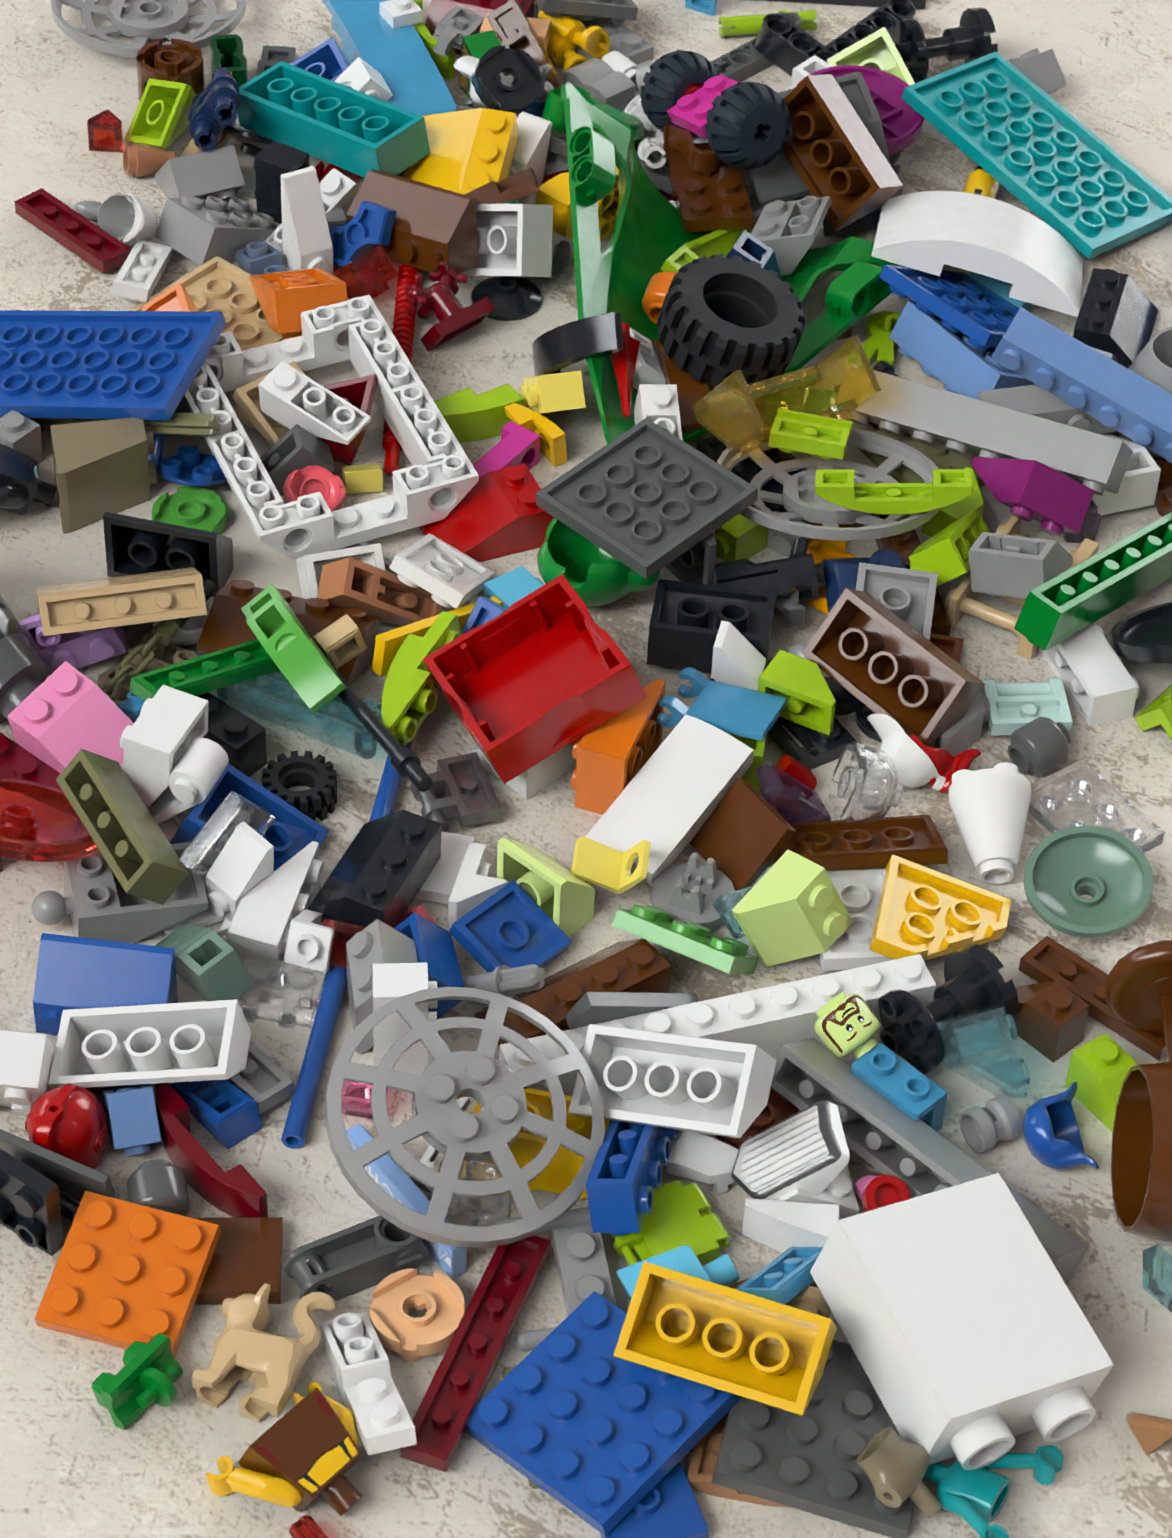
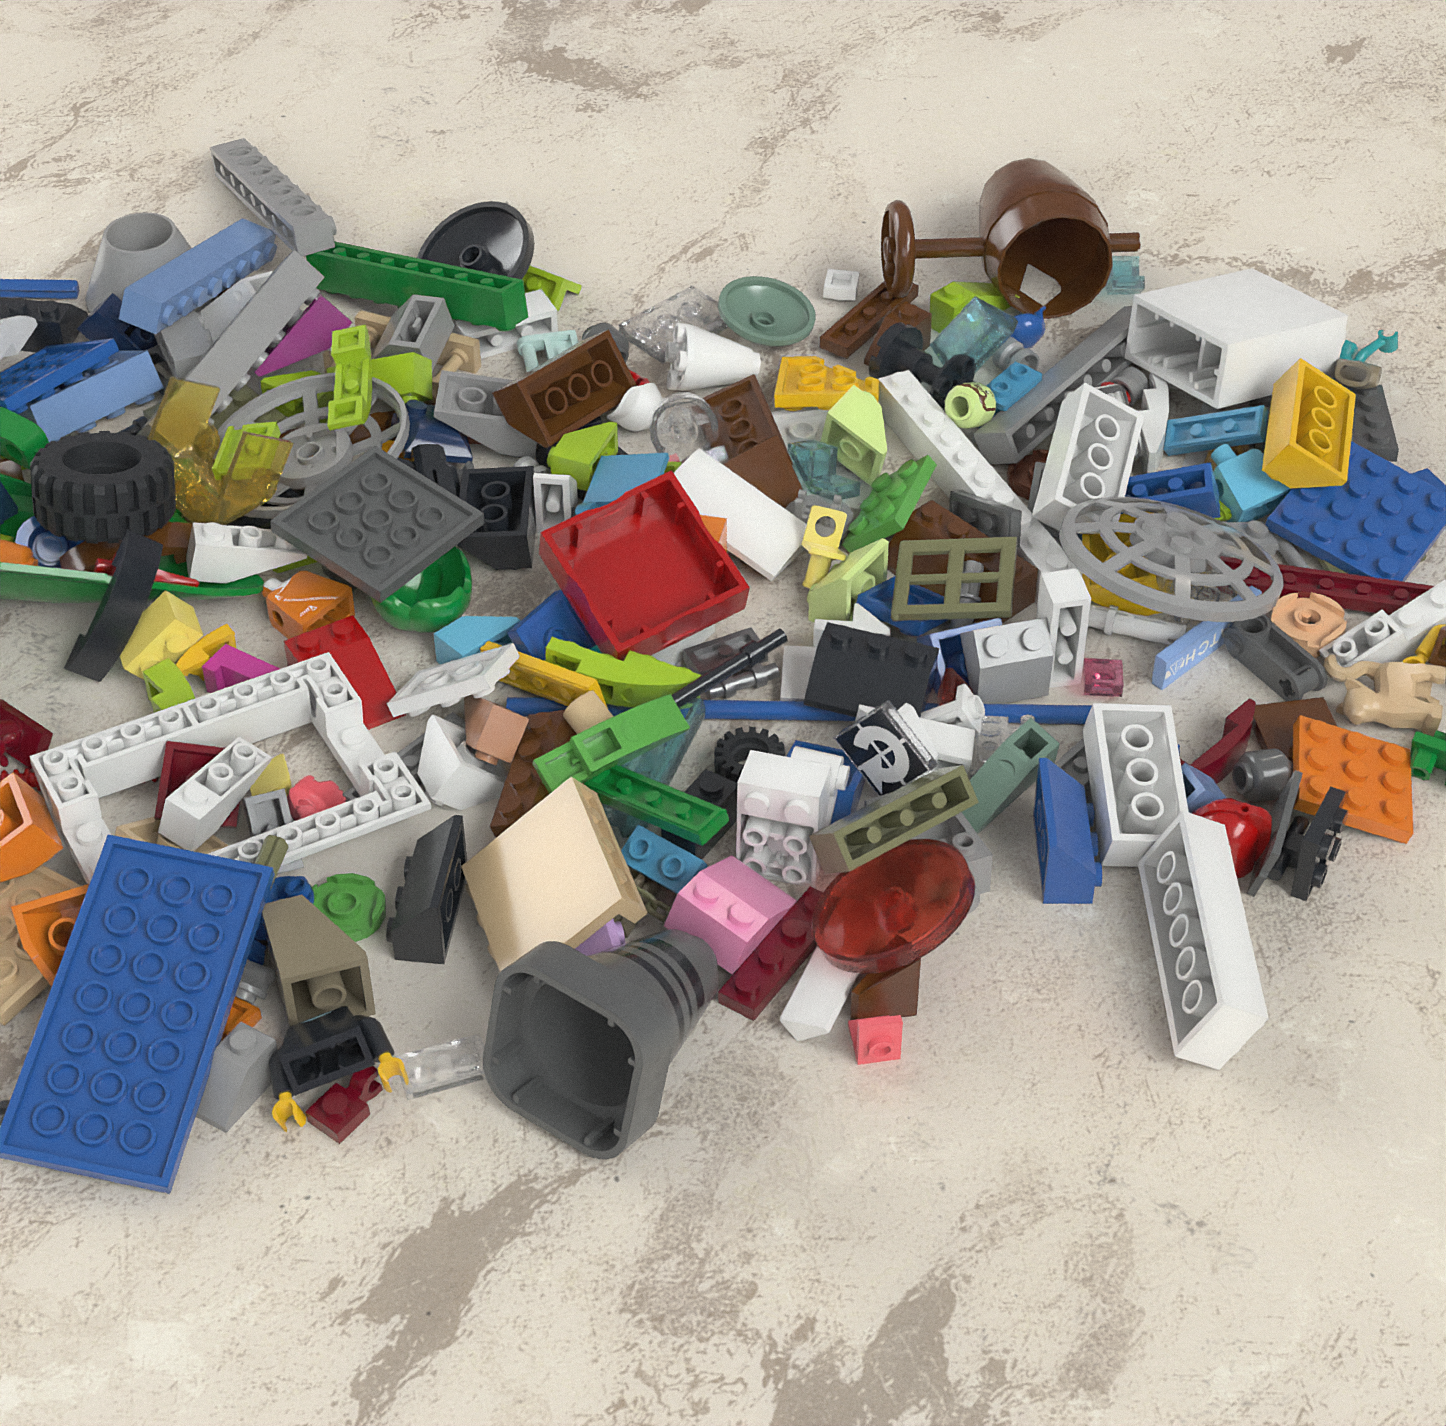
camera: 95 degrees left, 0 degrees up
(456, 936) = (954, 578): none -> olive window

